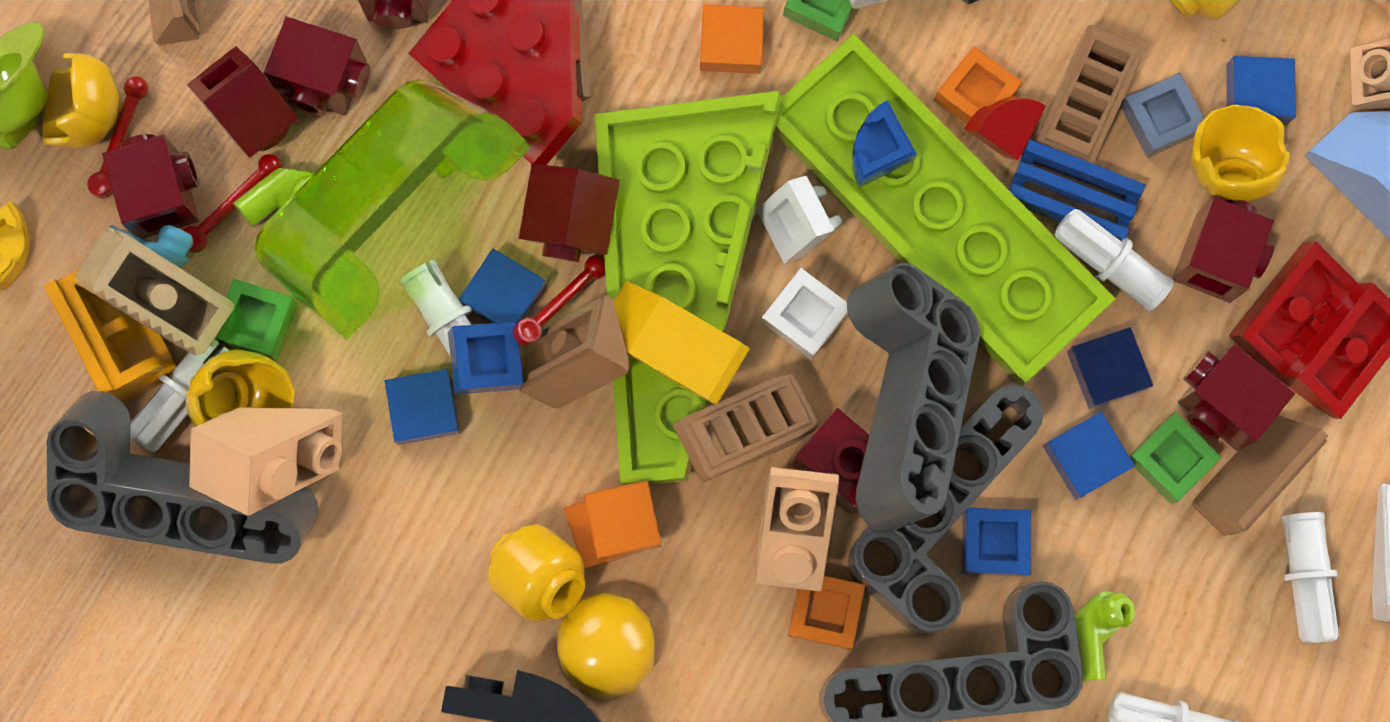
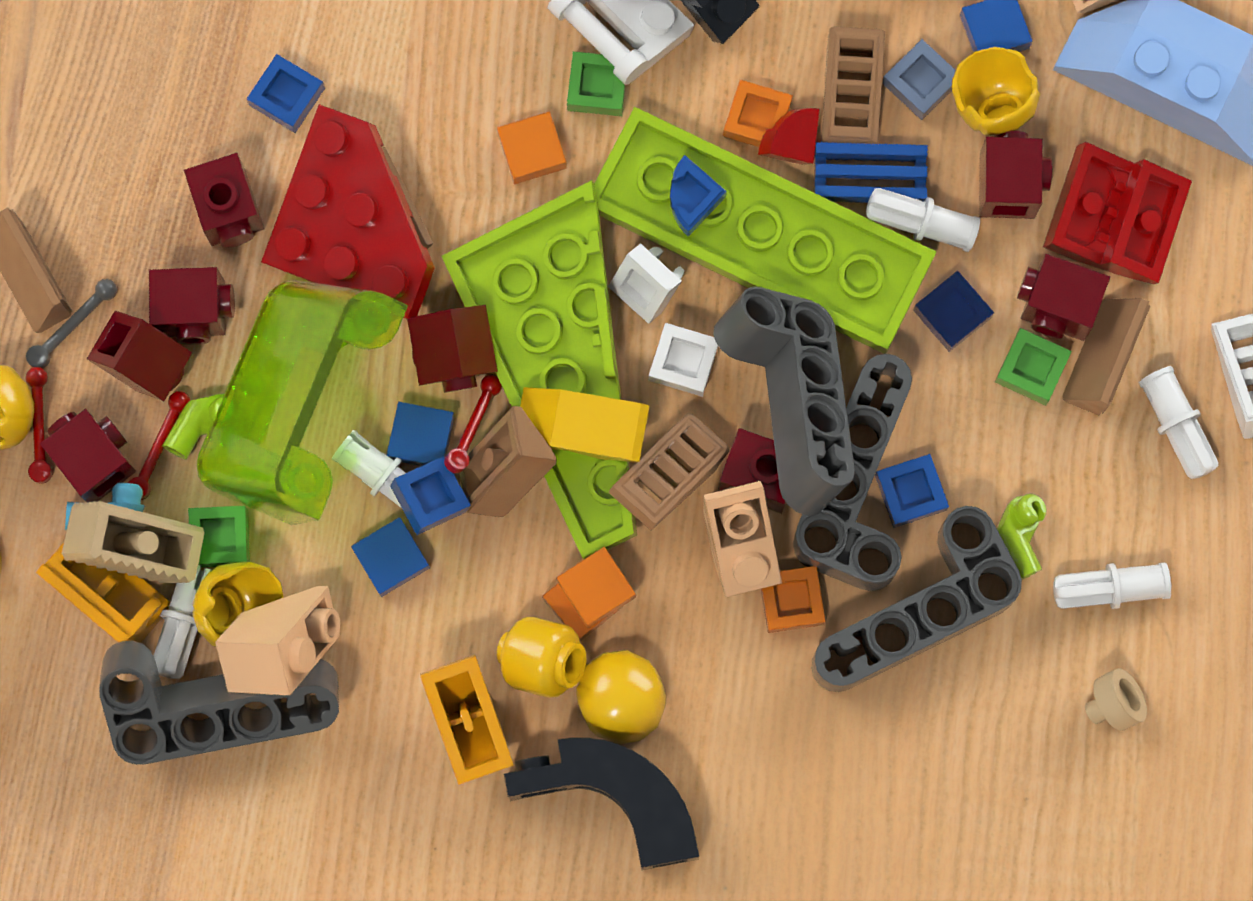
camera: 15 degrees left, 0 degrees up
(150, 67) = (40, 355): none -> dark grey hinge
(430, 611) = (466, 719): none -> light orange slope
(1088, 455) = (962, 391): blue tile -> none

